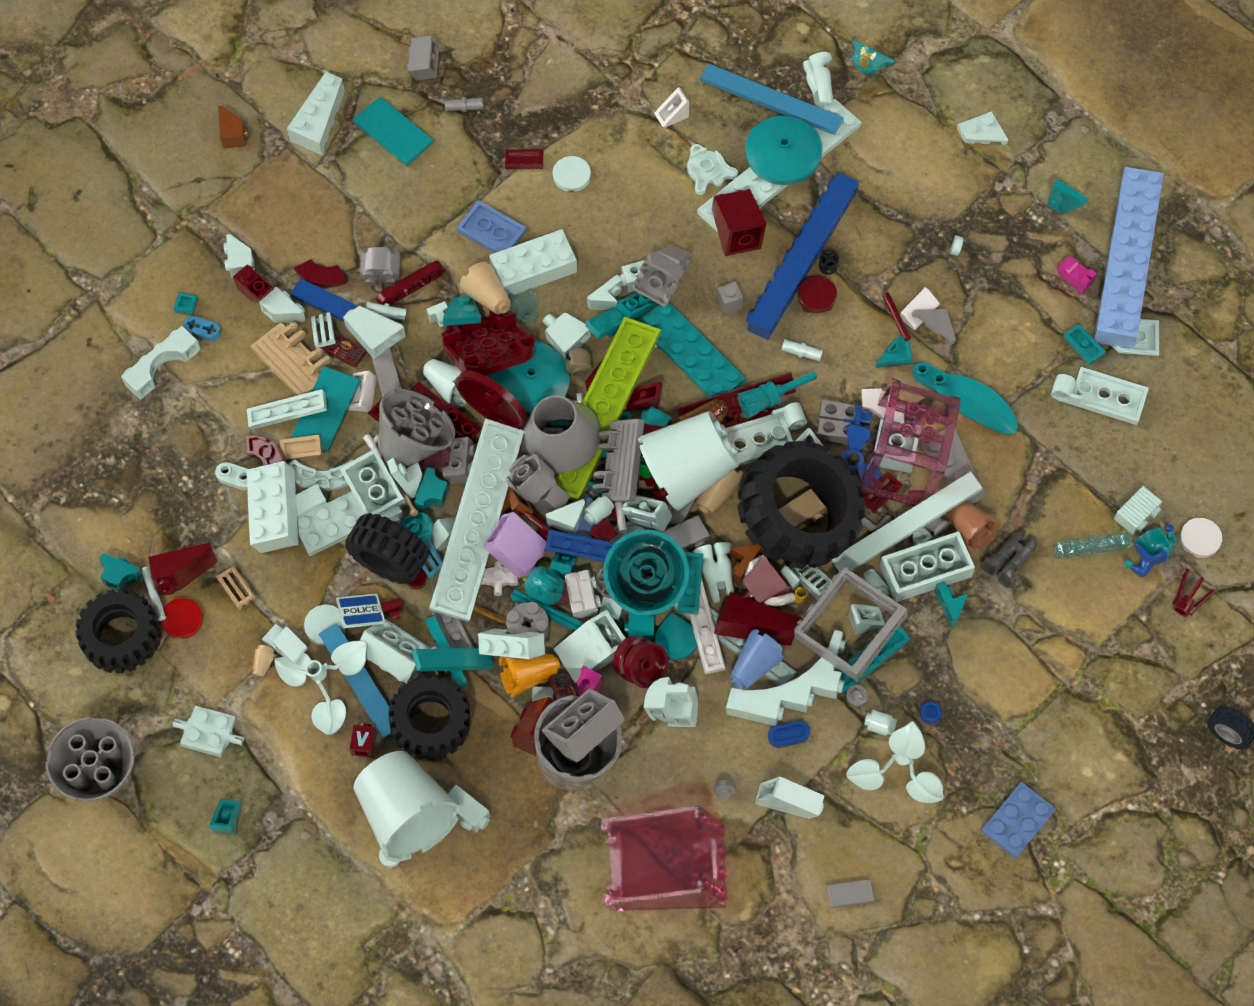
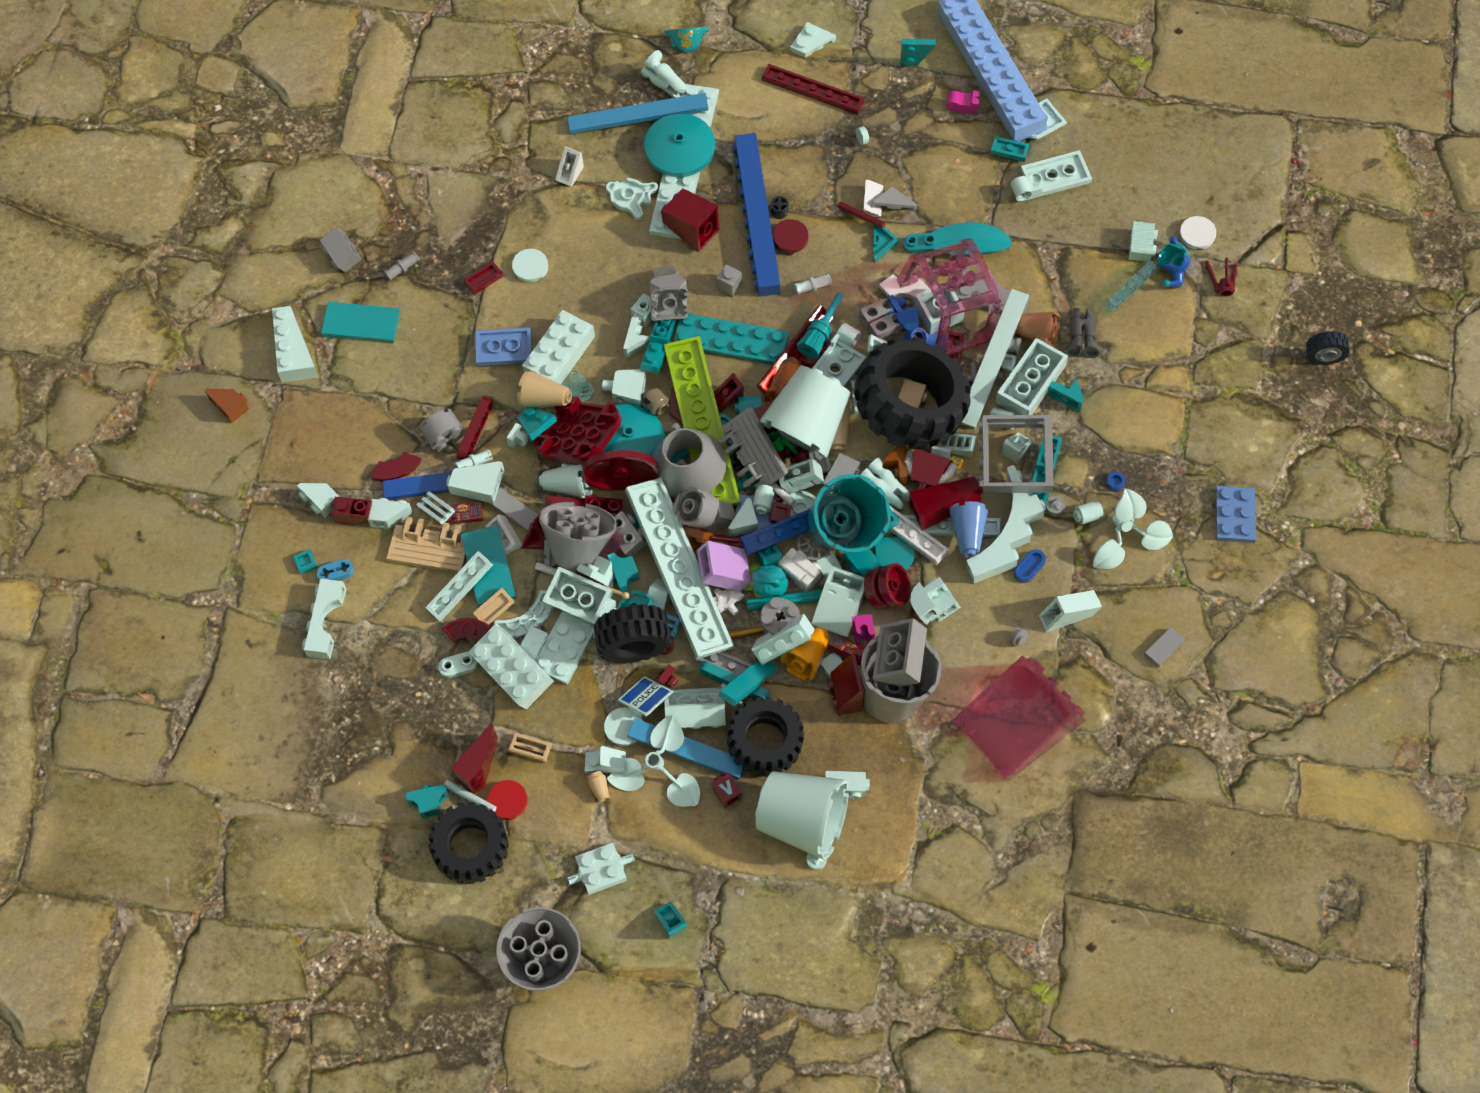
camera: 35 degrees left, 0 degrees up
(948, 176) = (813, 89): none -> dark red tile

